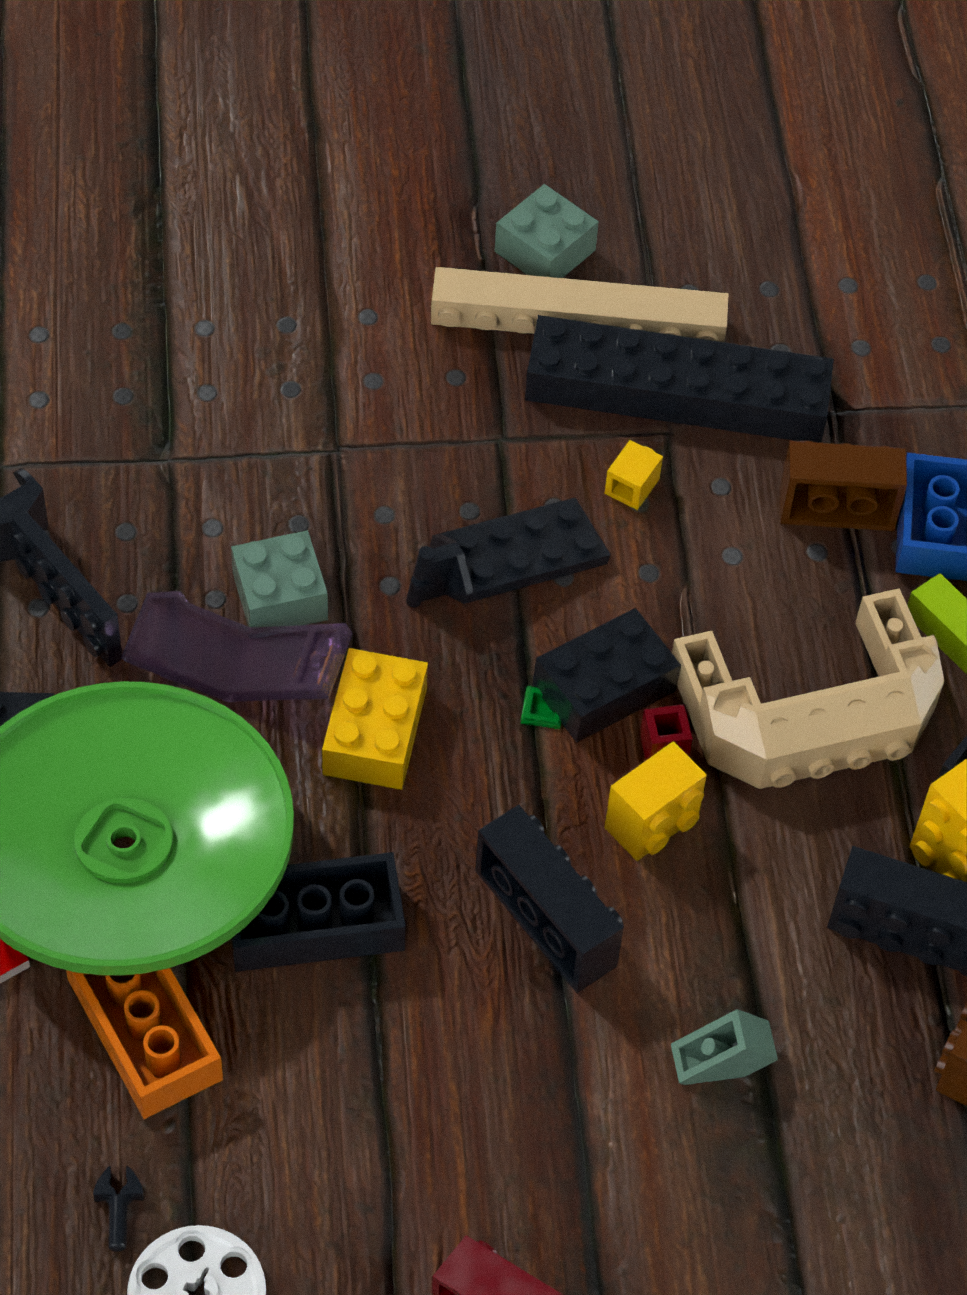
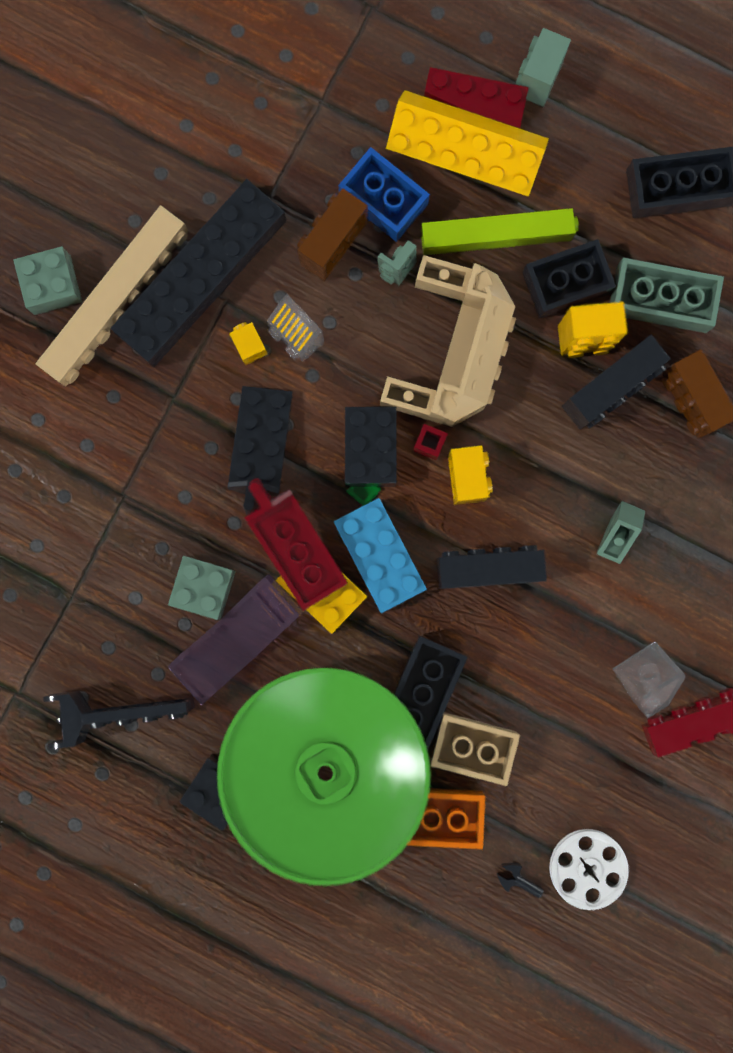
camera: 50 degrees left, 30 degrees up
(280, 1020) = (474, 748): none -> tan brick
(411, 623) = (294, 546): none -> dark red hinge
(468, 763) = (380, 555): none -> dark azure brick
(536, 1210) = (650, 679): none -> clear slope
(690, 510) = (294, 329): none -> clear slope
(866, 571) = (397, 270): none -> sand green bracket

